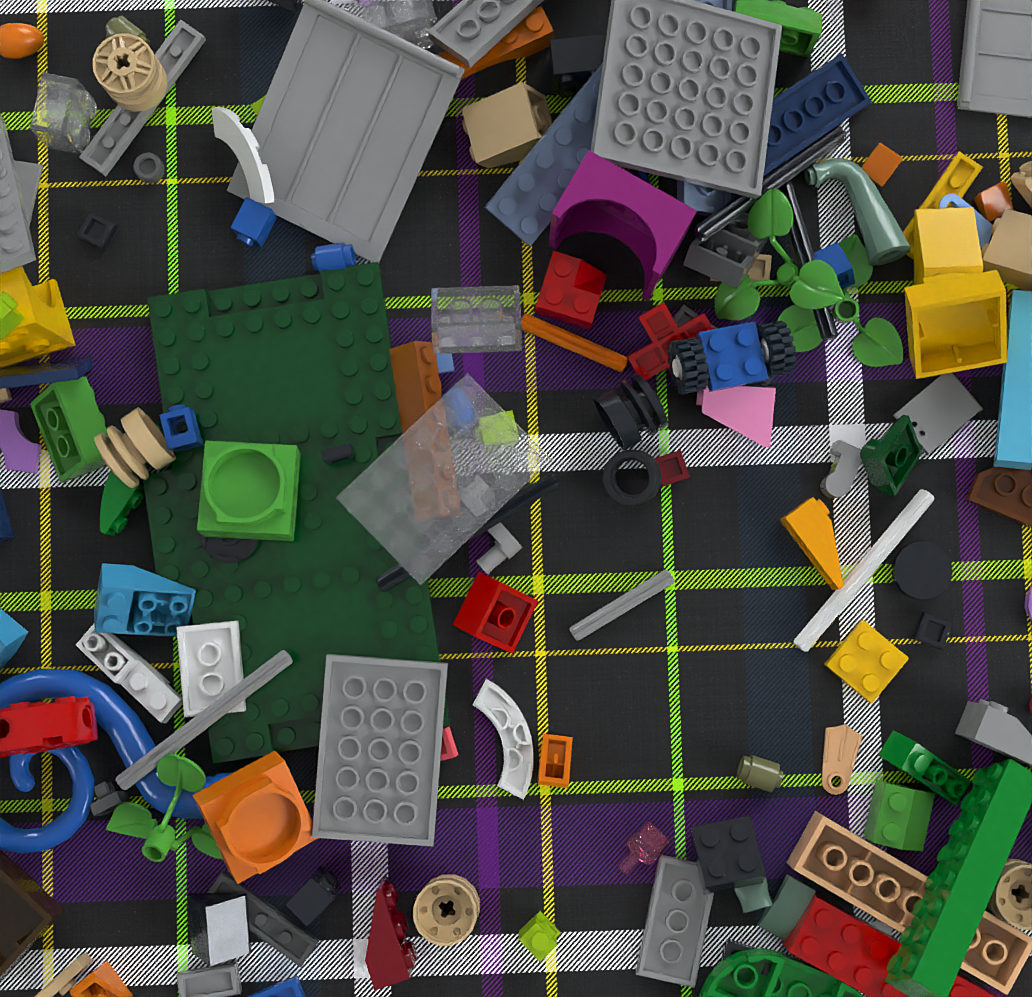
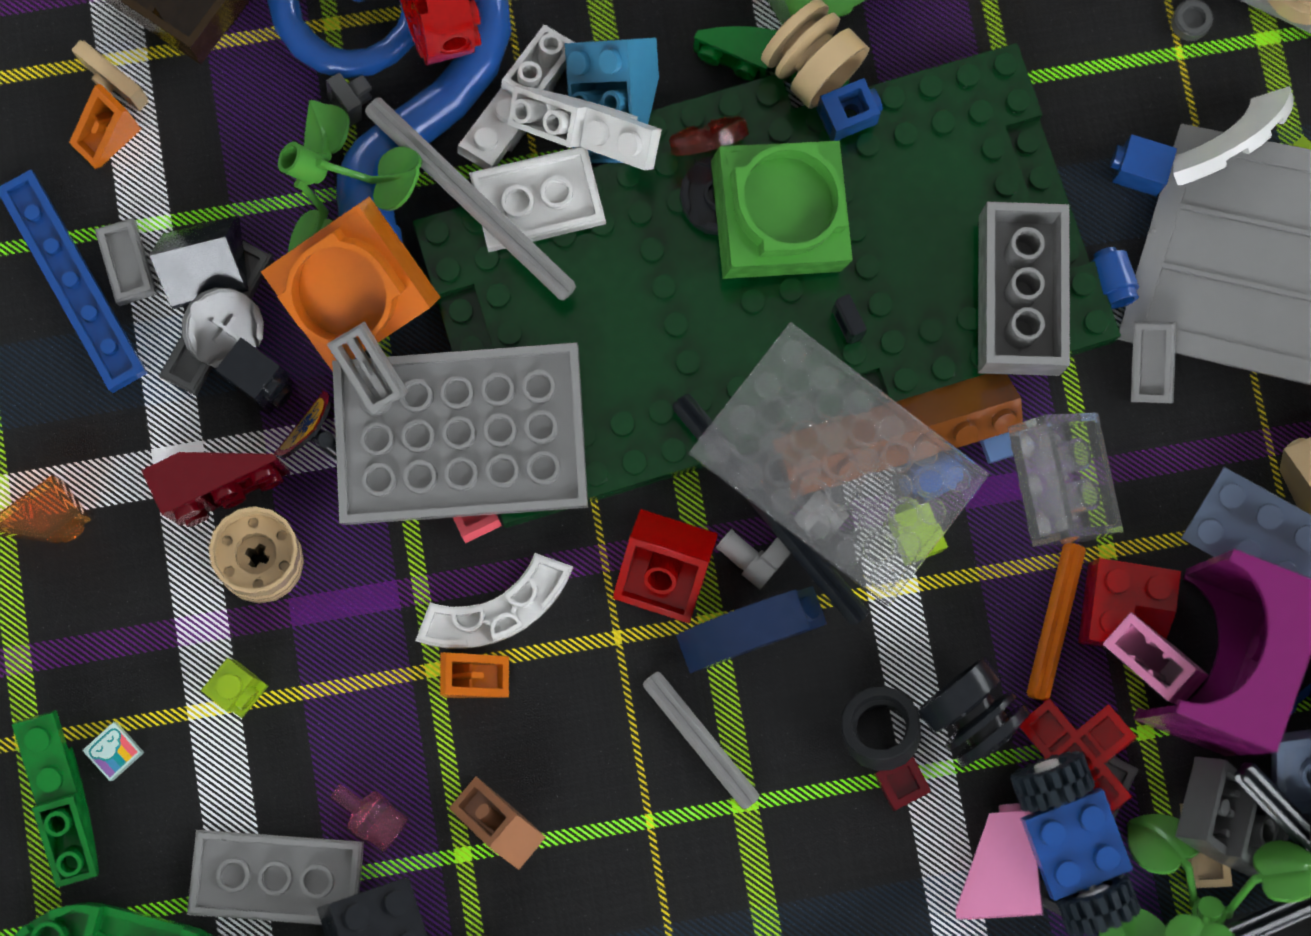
camera: 80 degrees right, 5 degrees down
(161, 626) = (584, 125): none -> white slope
(184, 525) = (717, 133): none -> clear red tile
(268, 918) = (218, 321): none -> light grey tile
(319, 802) = (381, 362): none -> light grey tile
(335, 325) = (1024, 289): none -> light grey brick
(359, 859) = (310, 429): none -> shield
(399, 242) = (1153, 362): none -> light grey tile
(550, 557) = (750, 628): none -> dark blue arch
(613, 279) = (1155, 659): none -> bright pink slope
(661, 757) = (497, 823): none -> nougat slope

